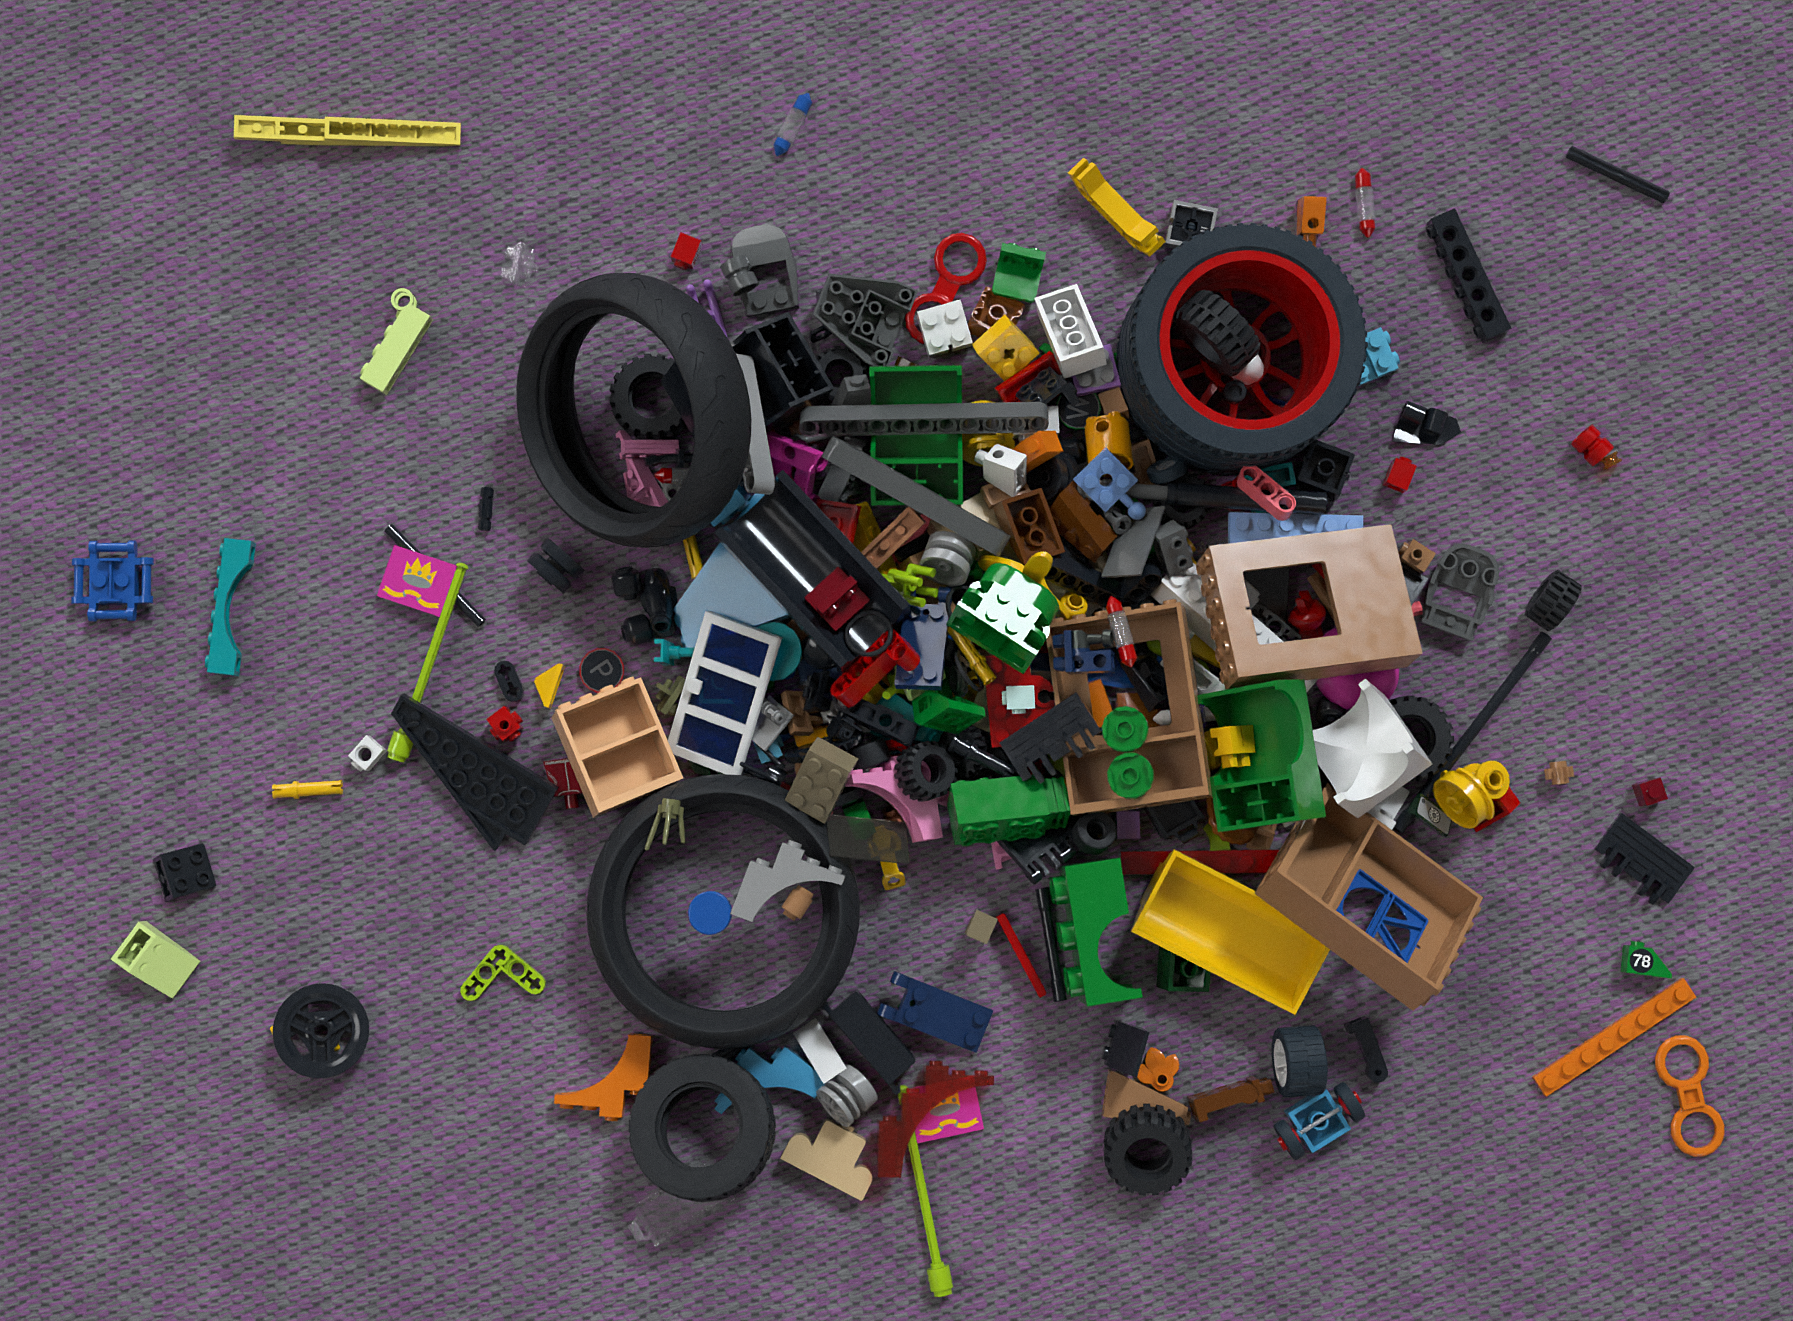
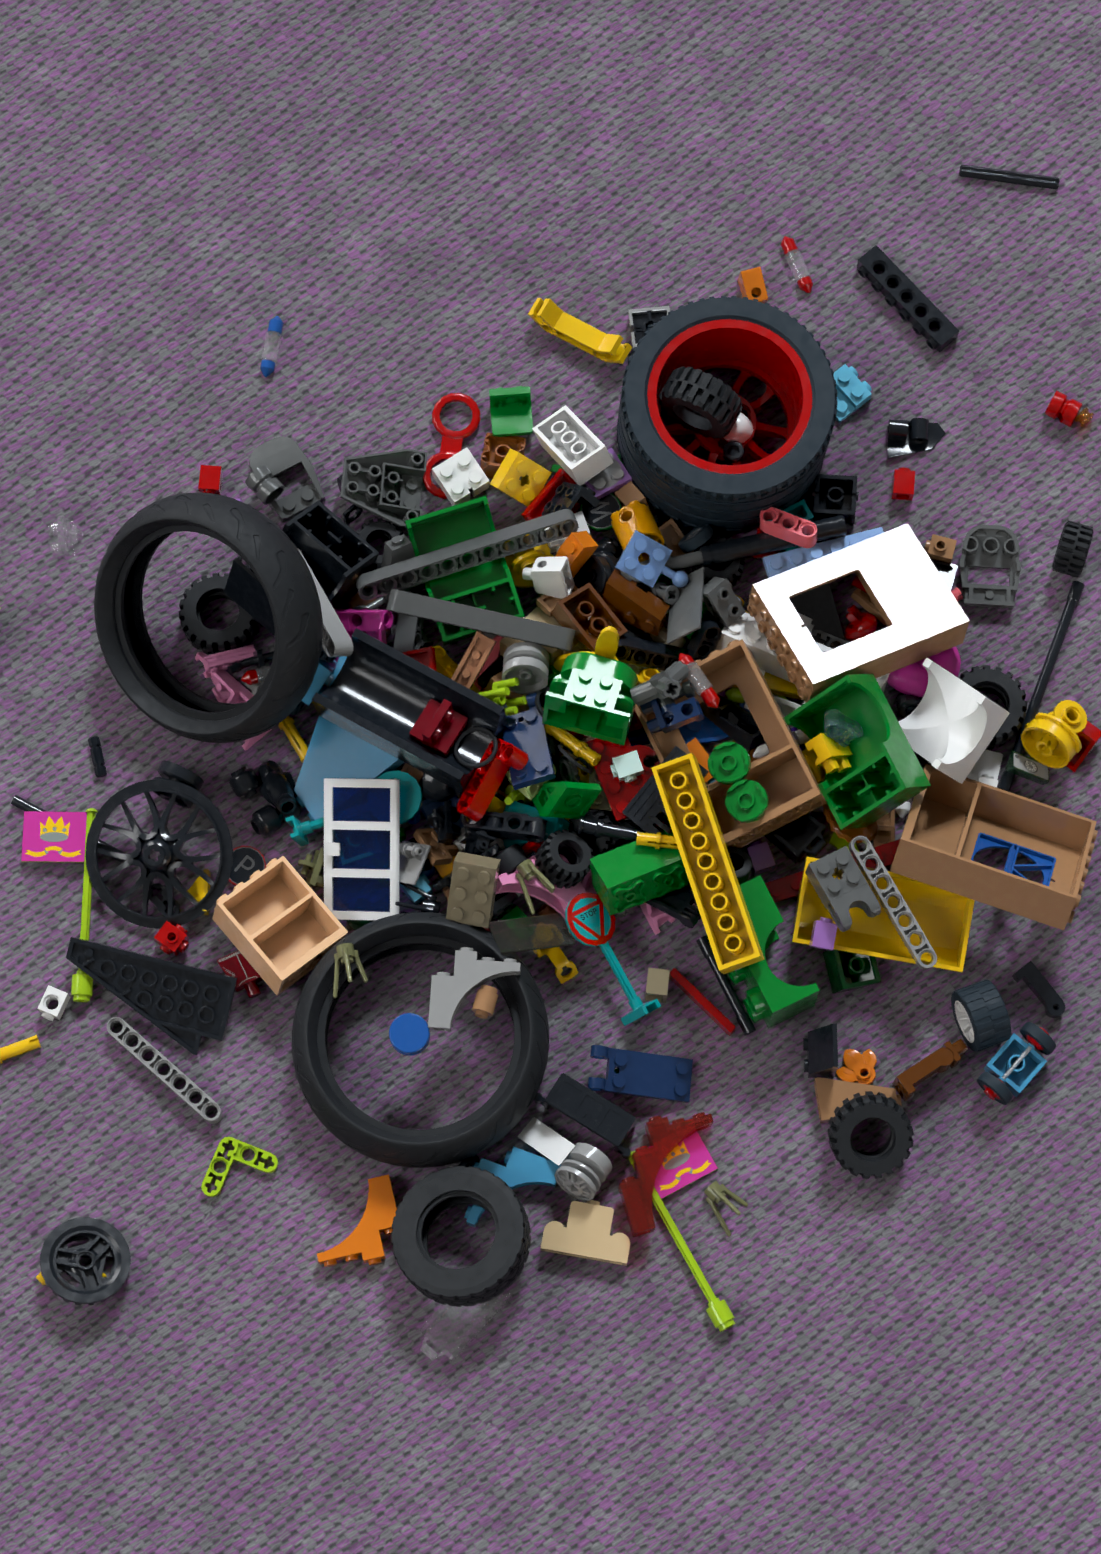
camera: 10 degrees left, 10 degrees down
(450, 849) = (159, 1061): none -> light grey beam
(523, 628) = (170, 853): none -> black wheel
(884, 775) = (528, 871): none -> olive plant
(933, 848) = (593, 926): none -> teal piece
(974, 1155) = (717, 1193): none -> olive plant
(1036, 791) = (656, 840): none -> yellow pin
(1069, 833) = (707, 863): none -> yellow brick
(1081, 627) = (661, 685): none -> dark grey piece
(1165, 936) = (823, 934): none -> medium lavender brick
(1202, 904) = (845, 893): none -> dark grey brick
(1253, 724) = (841, 727): none -> clear light blue piece
(1253, 935) = (893, 913): none -> light grey beam

